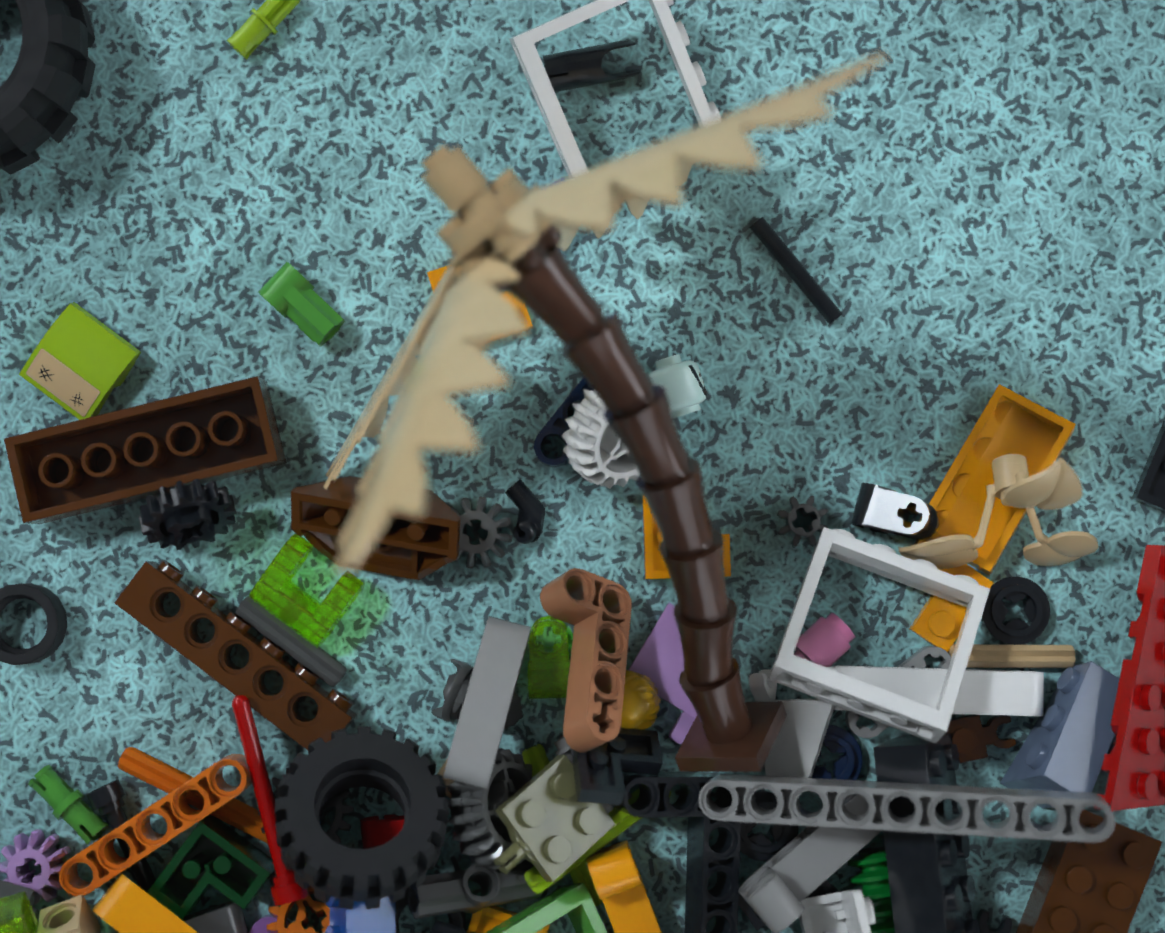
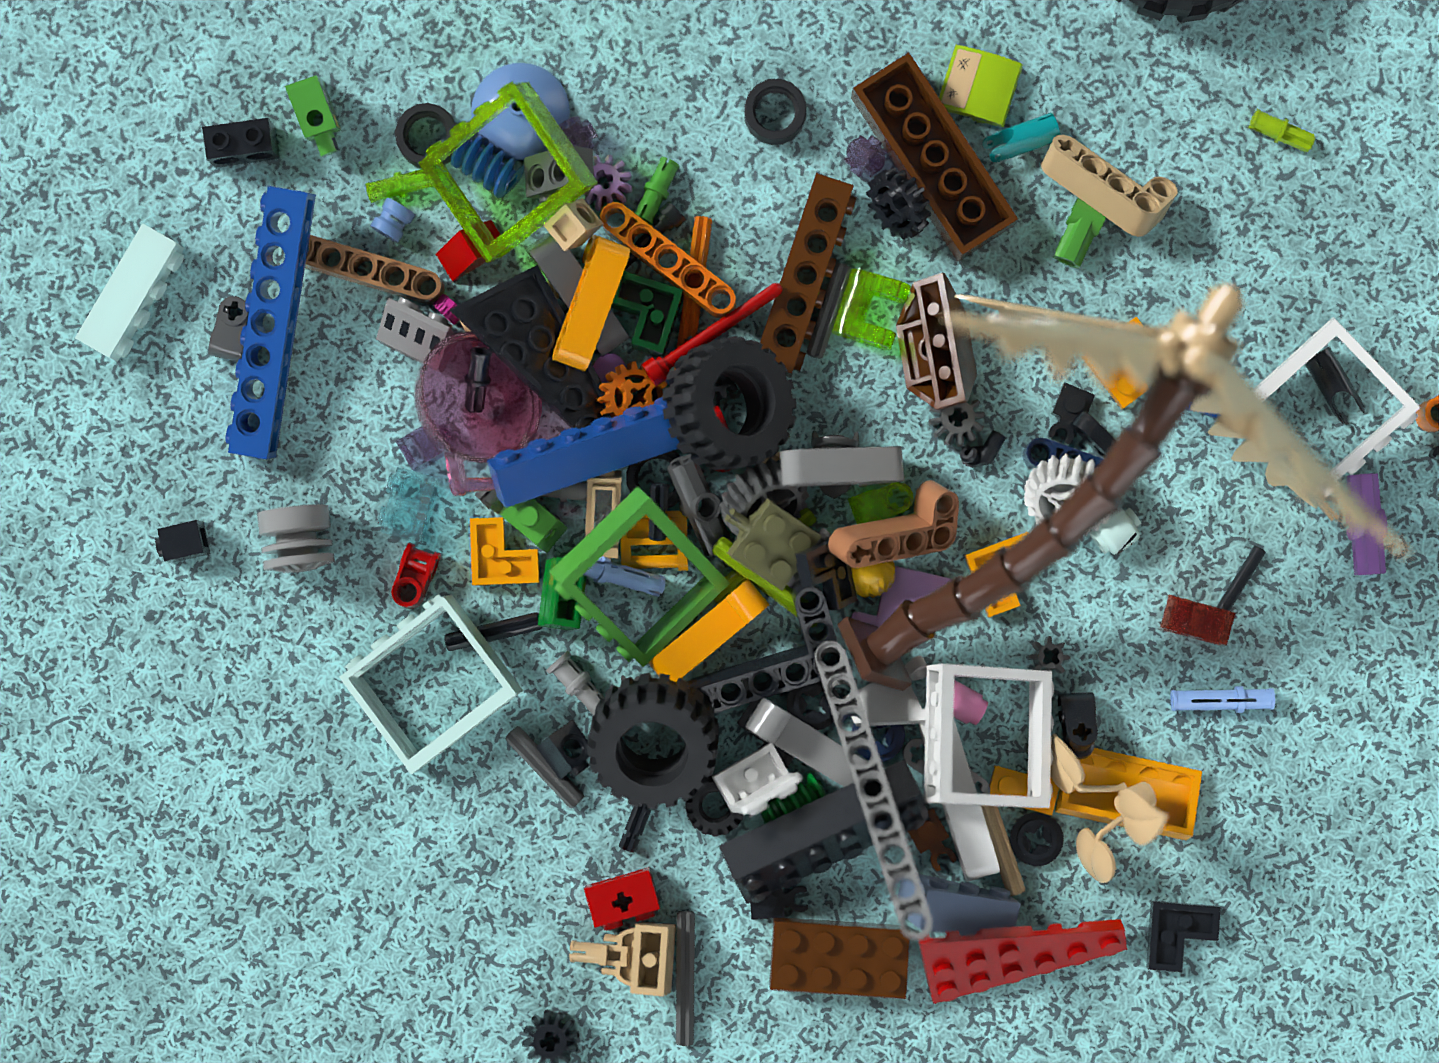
camera: 75 degrees right, 0 degrees up
(115, 532) = (865, 156): none -> clear purple gear
(162, 332) = (1022, 137): none -> teal piece
(258, 254) = (1106, 188): none -> tan beam
(518, 392) = (1067, 407): none -> black plate
(548, 375) = (1093, 433): none -> black beam
(754, 81) = (1366, 544): none -> medium lavender piece
(819, 328) = (1197, 621): none -> clear red brick
(922, 328) = (1261, 699): none -> light blue pin

